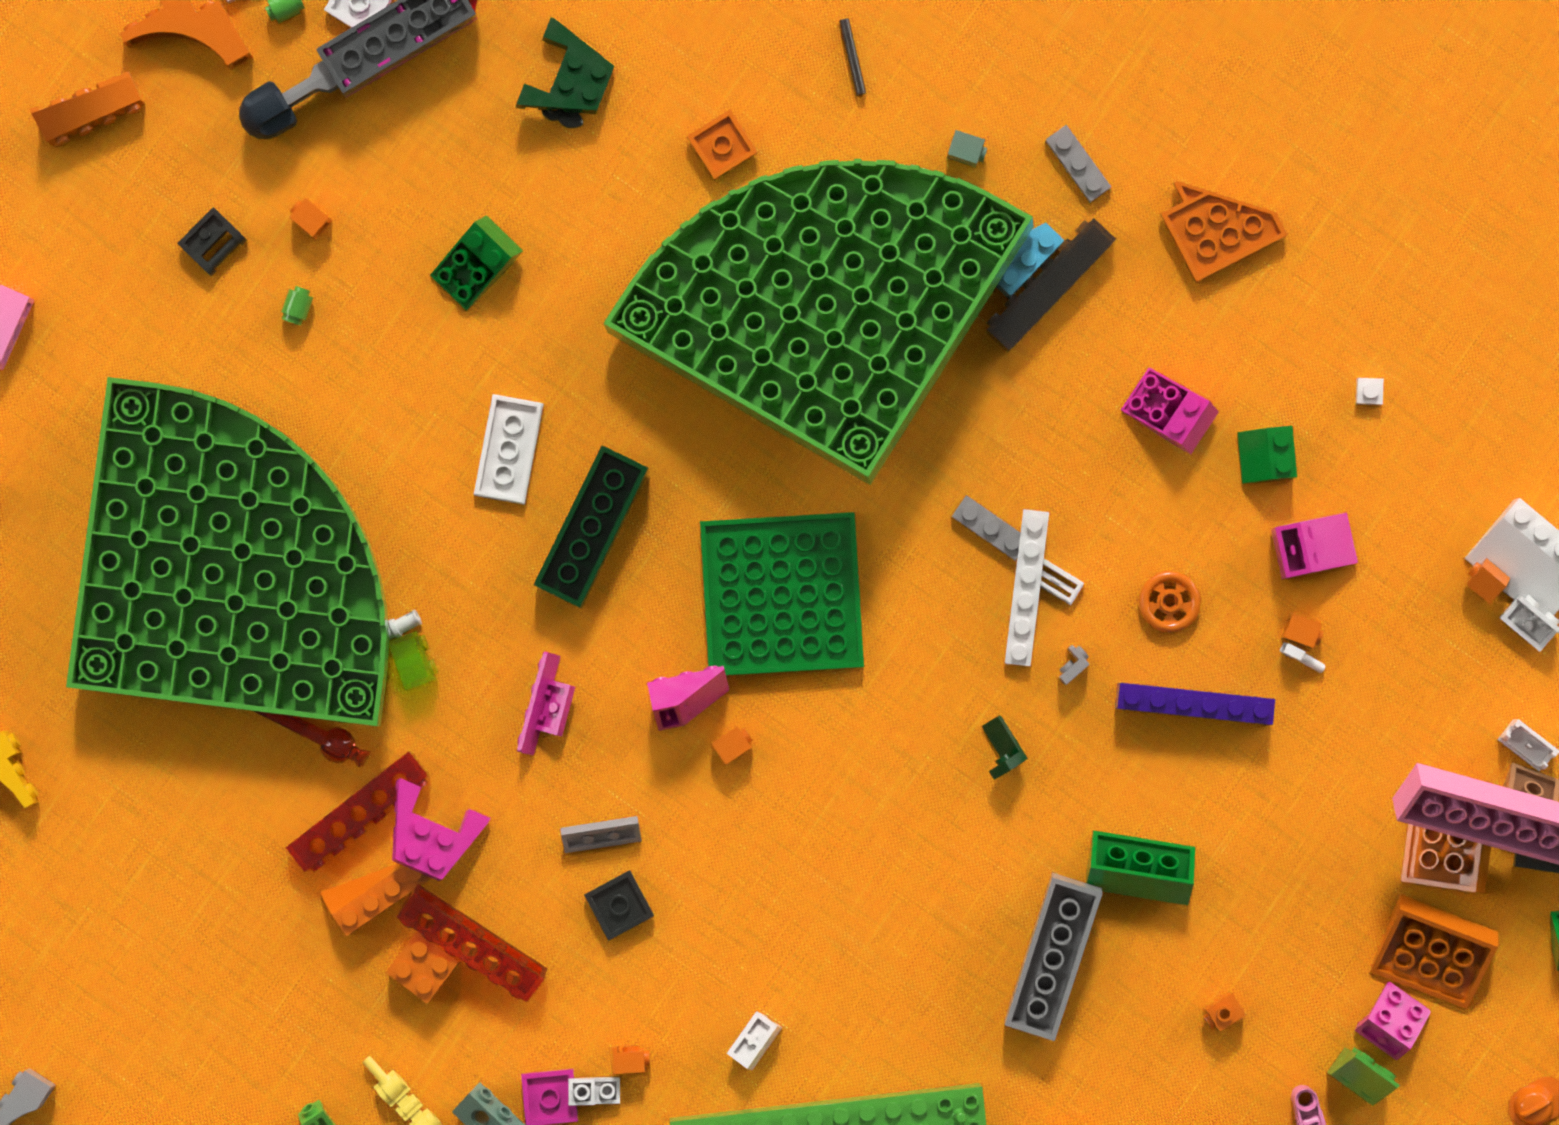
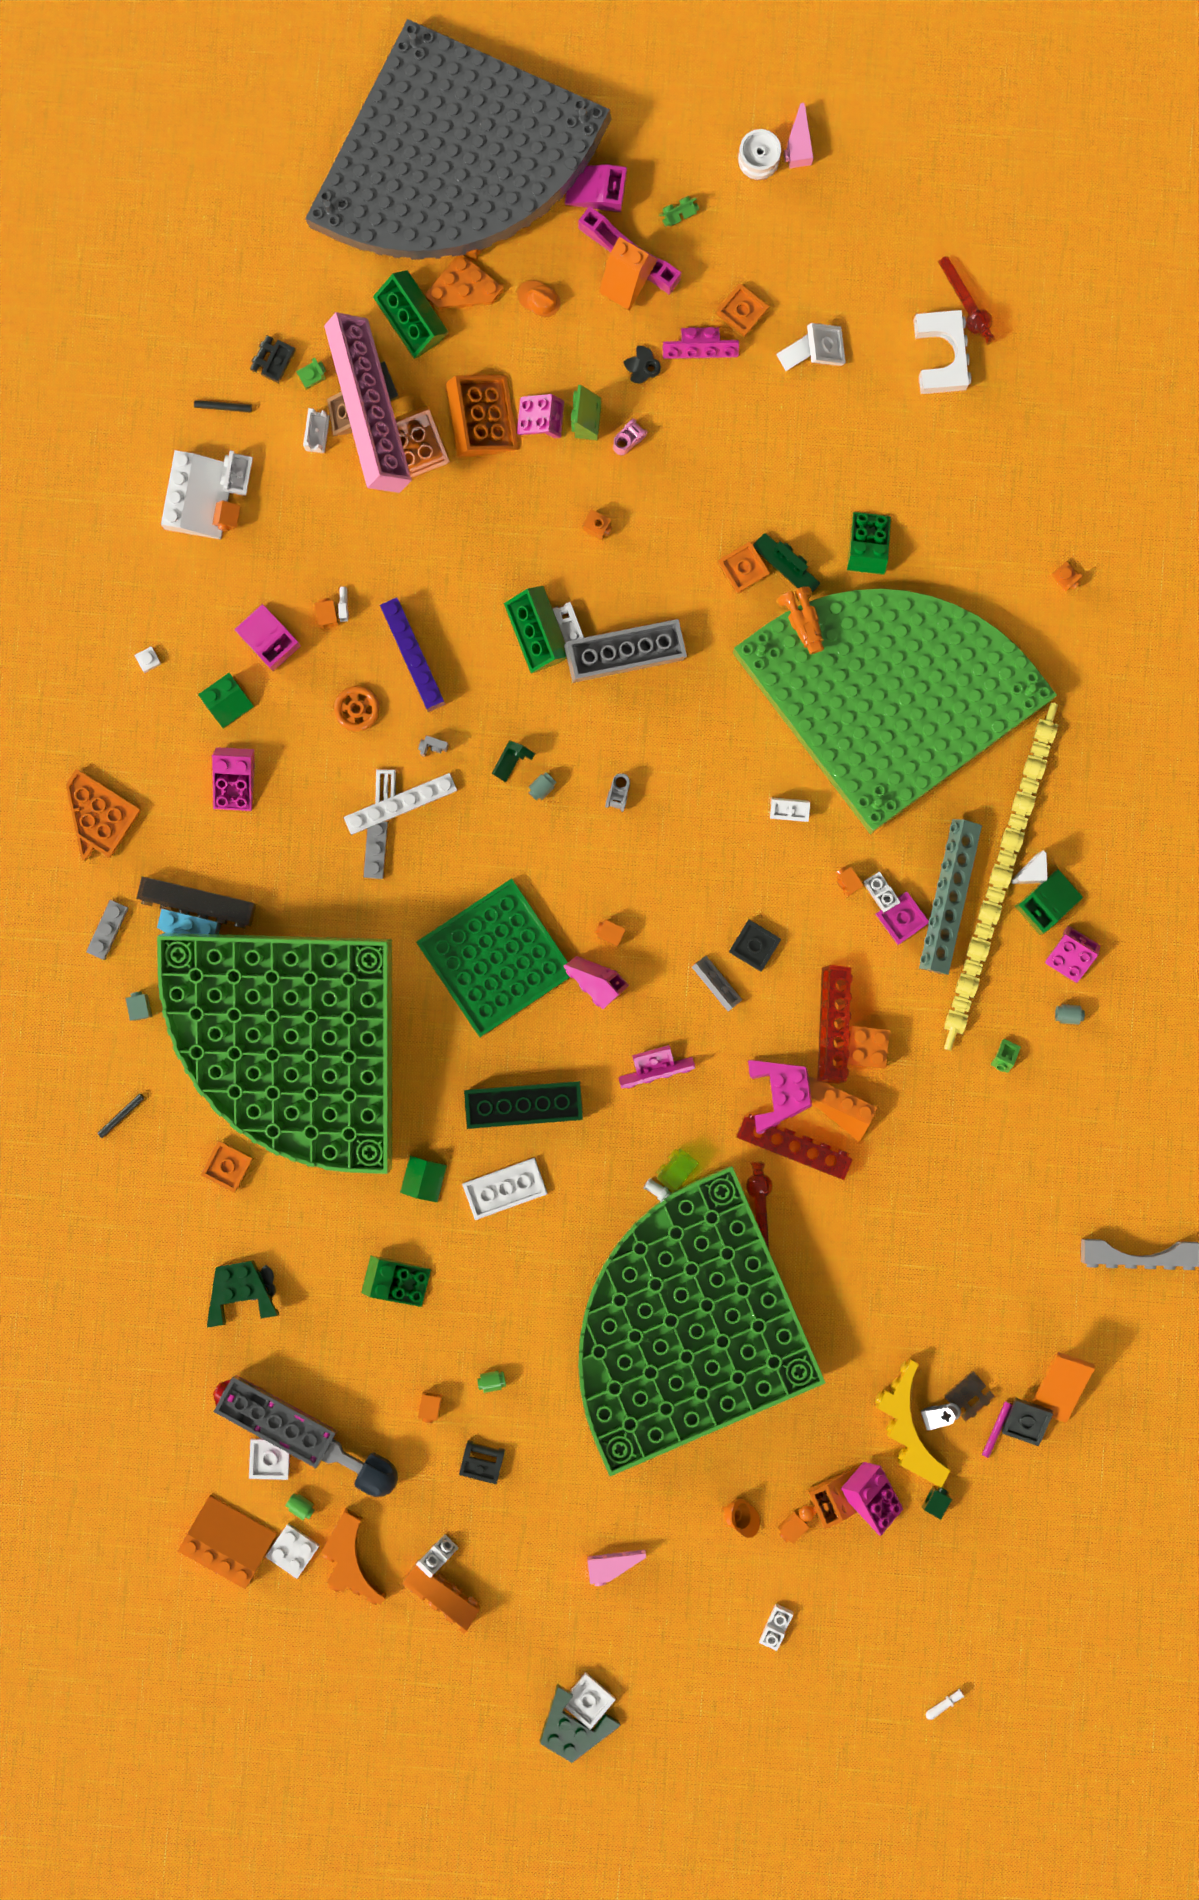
camera: 120 degrees left, 0 degrees up
(136, 129) = (437, 1556): none -> white slope
(574, 361) = (423, 1179): none -> green slope
(890, 849) = (618, 794): none -> light grey piece
(950, 765) = (542, 786): none -> sand green brick
(1121, 908) = (568, 626): none -> white plate

